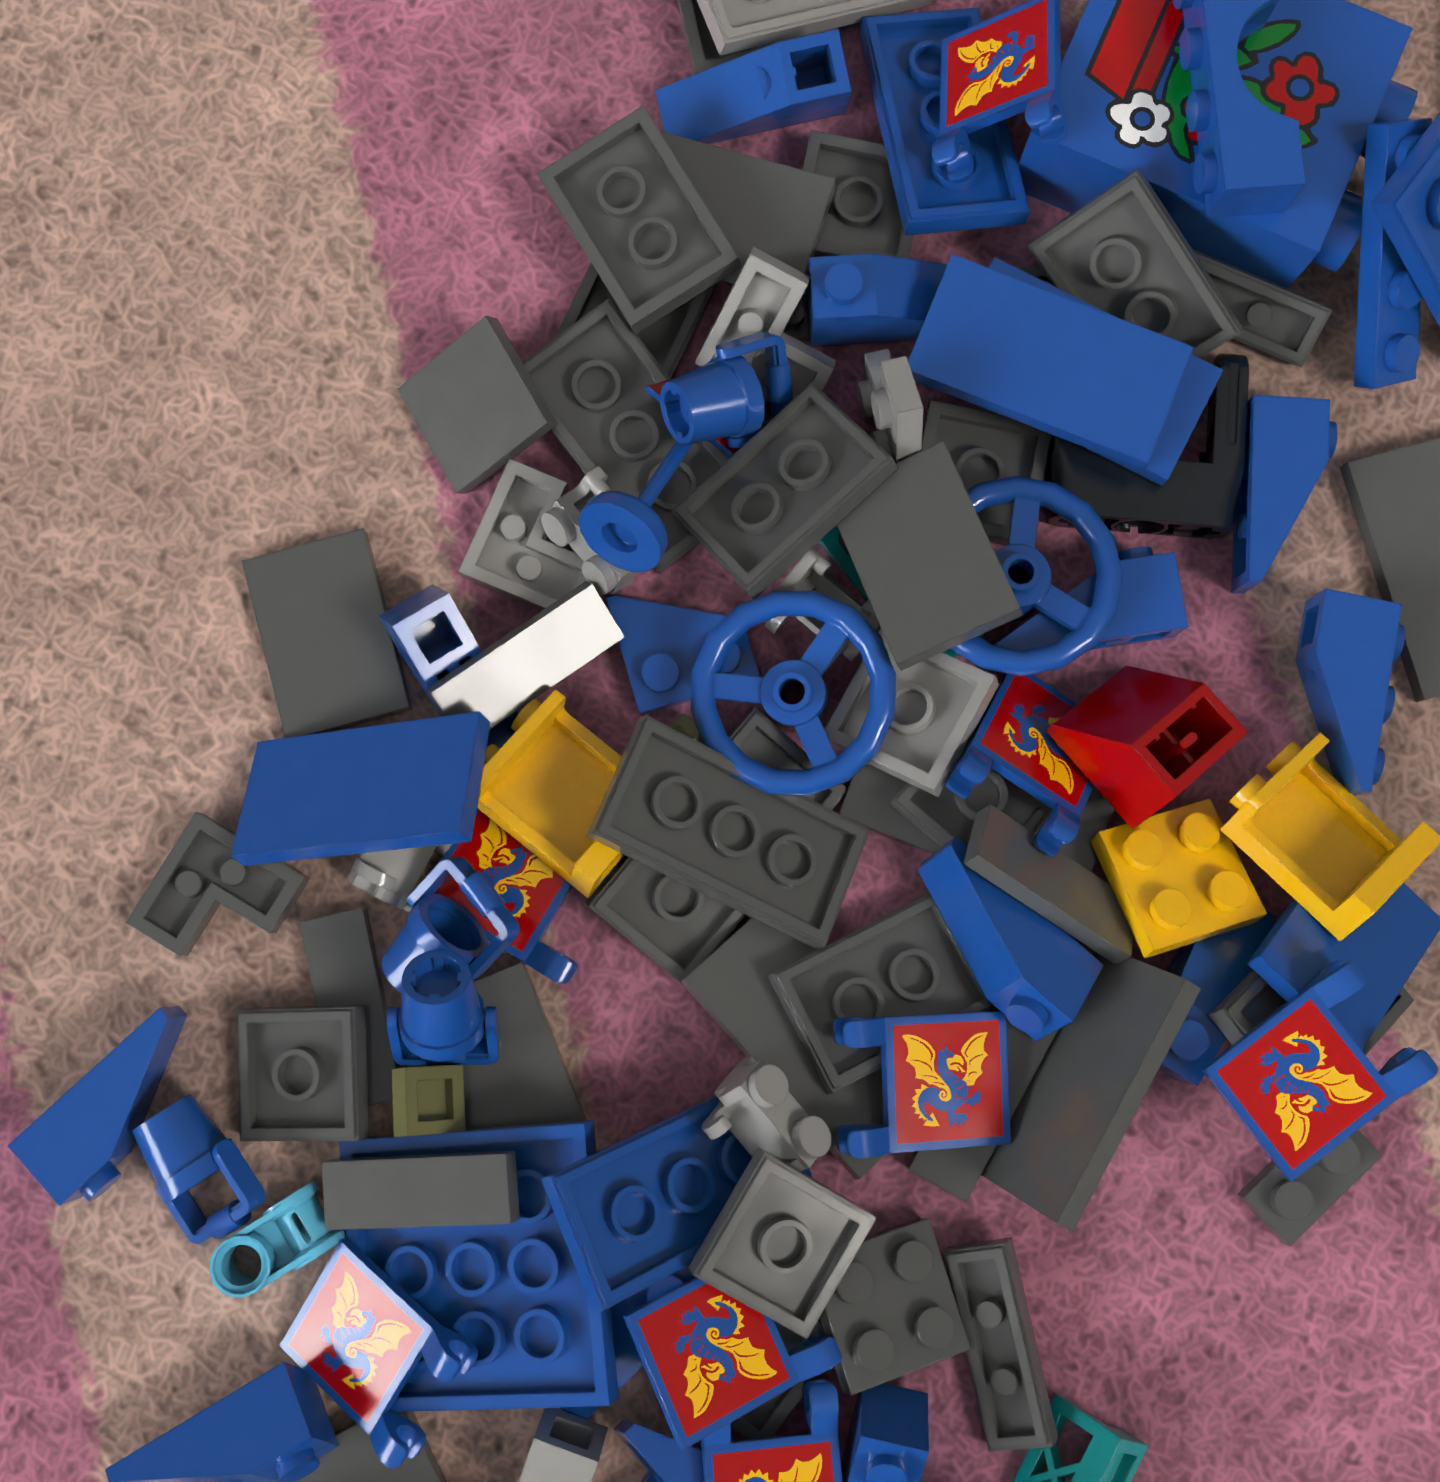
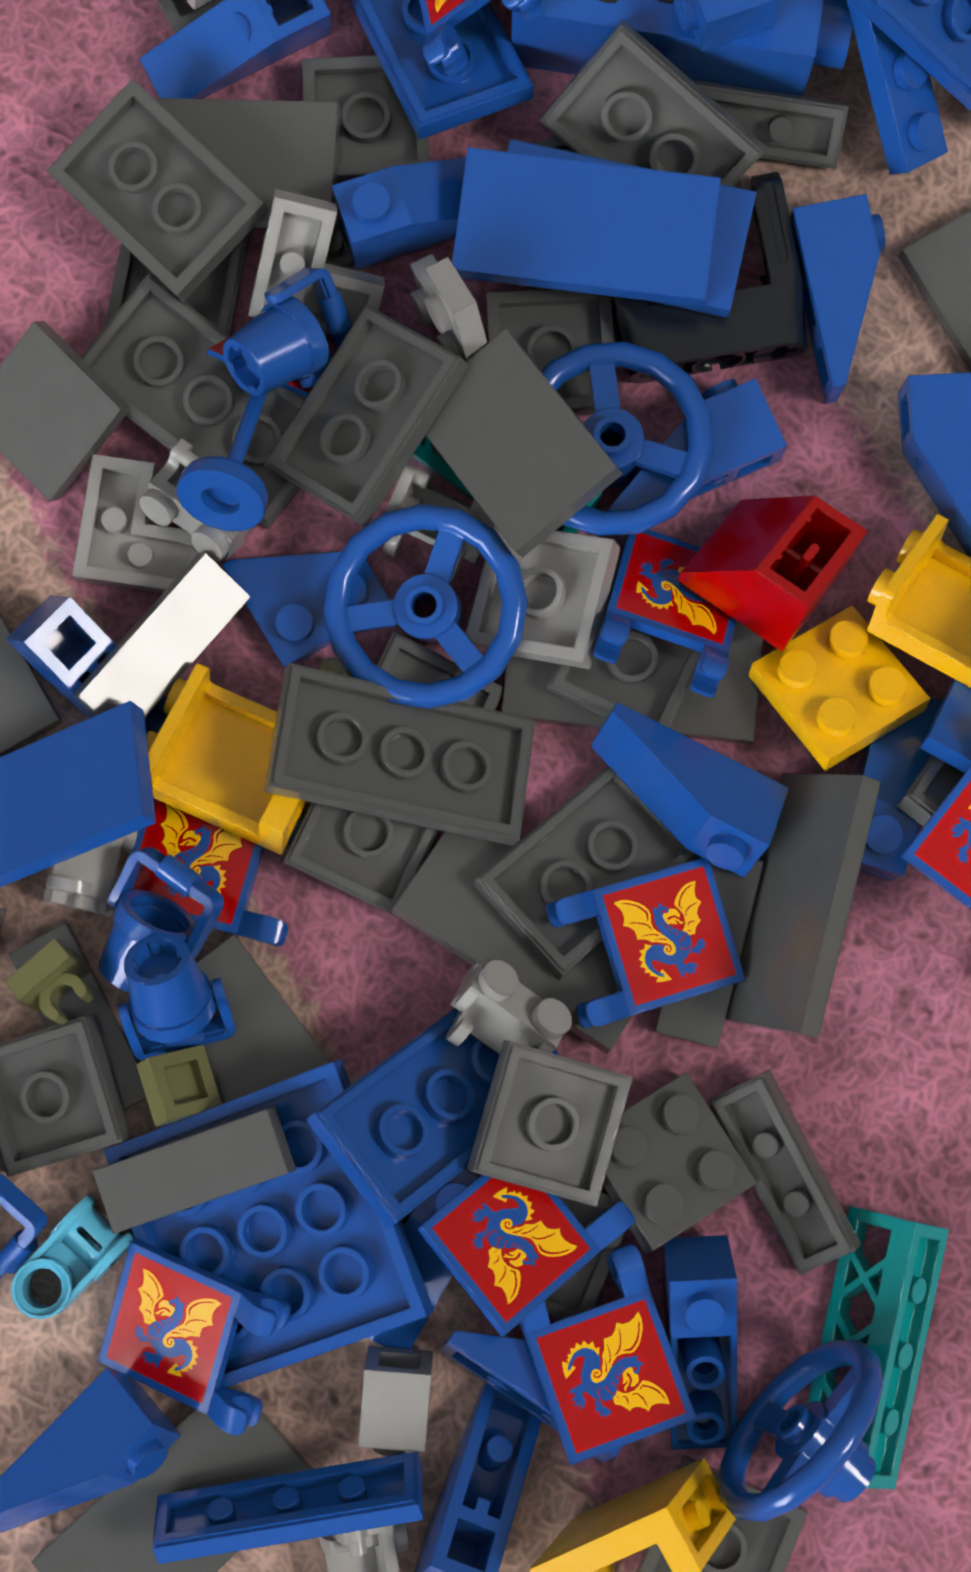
camera: 15 degrees left, 0 degrees up
(327, 960) = (48, 977): none -> olive tile
(1050, 886) = (717, 725): dark grey tile -> none

